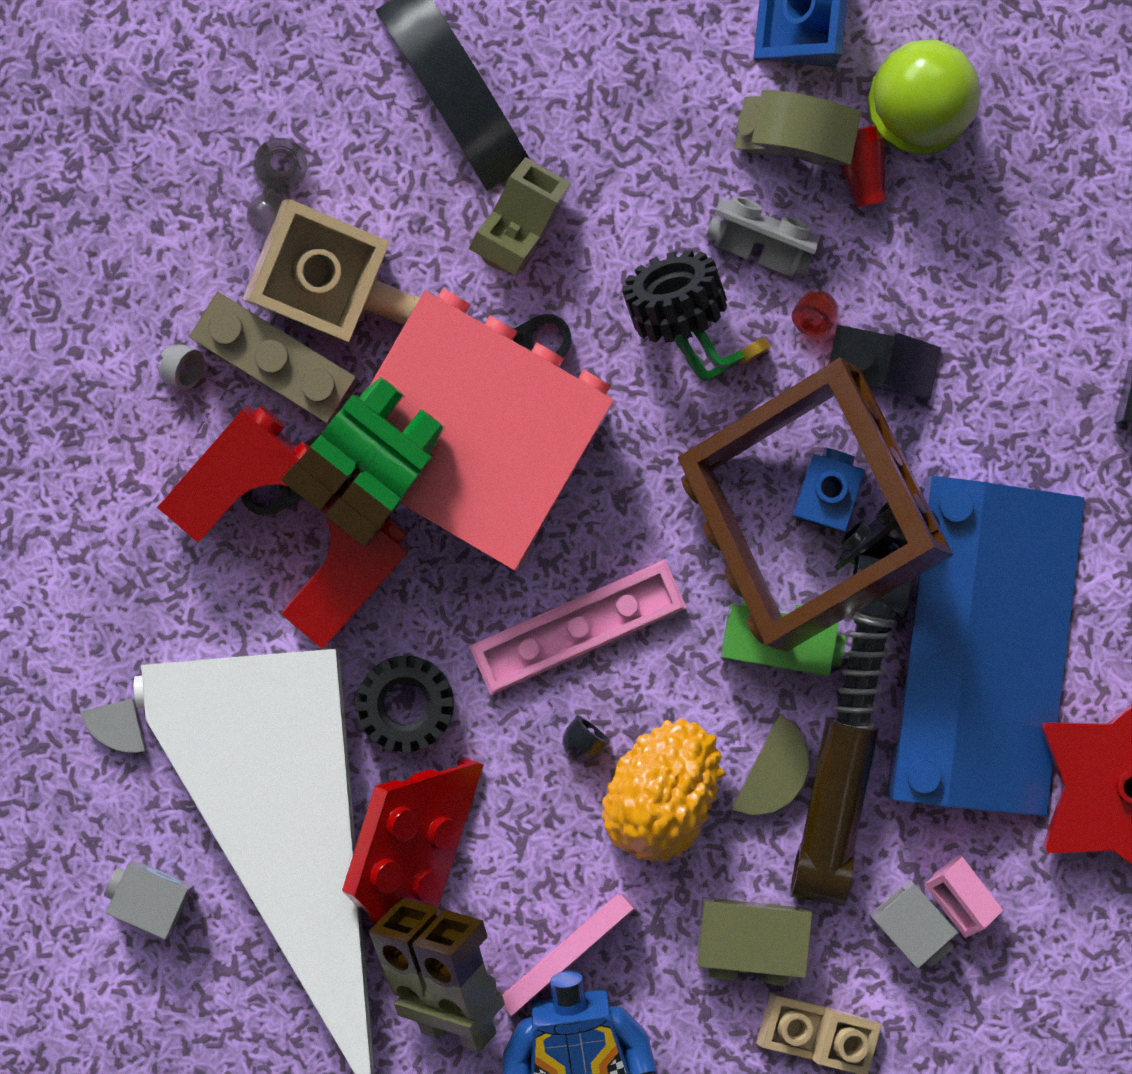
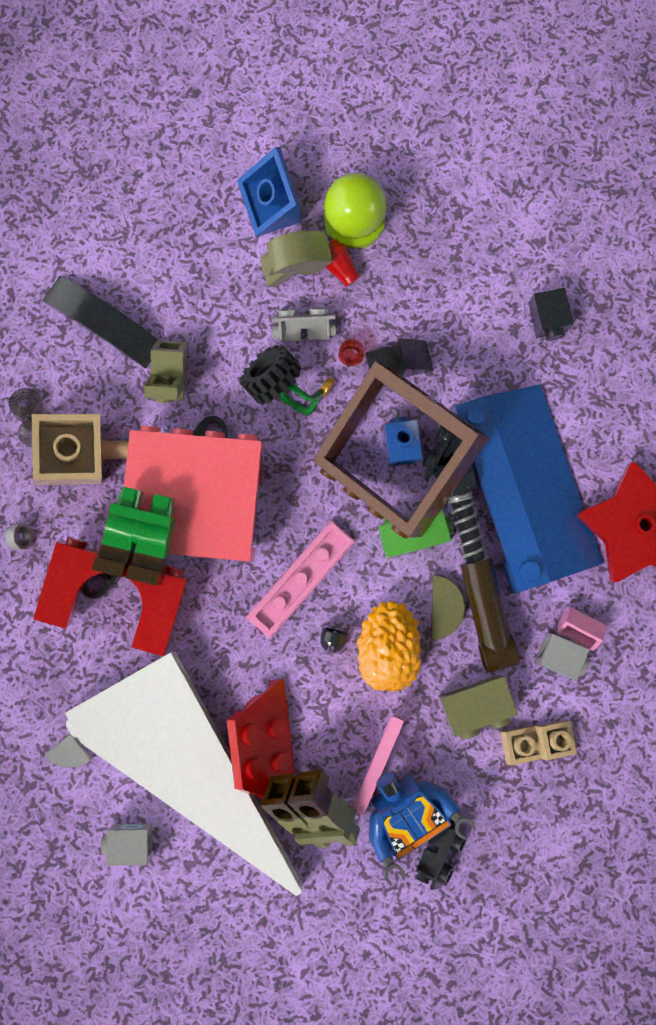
camera: 30 degrees left, 5 degrees down
(274, 358) = (61, 507): dark tan brick -> none
(372, 708) = (205, 671): black tyre -> none

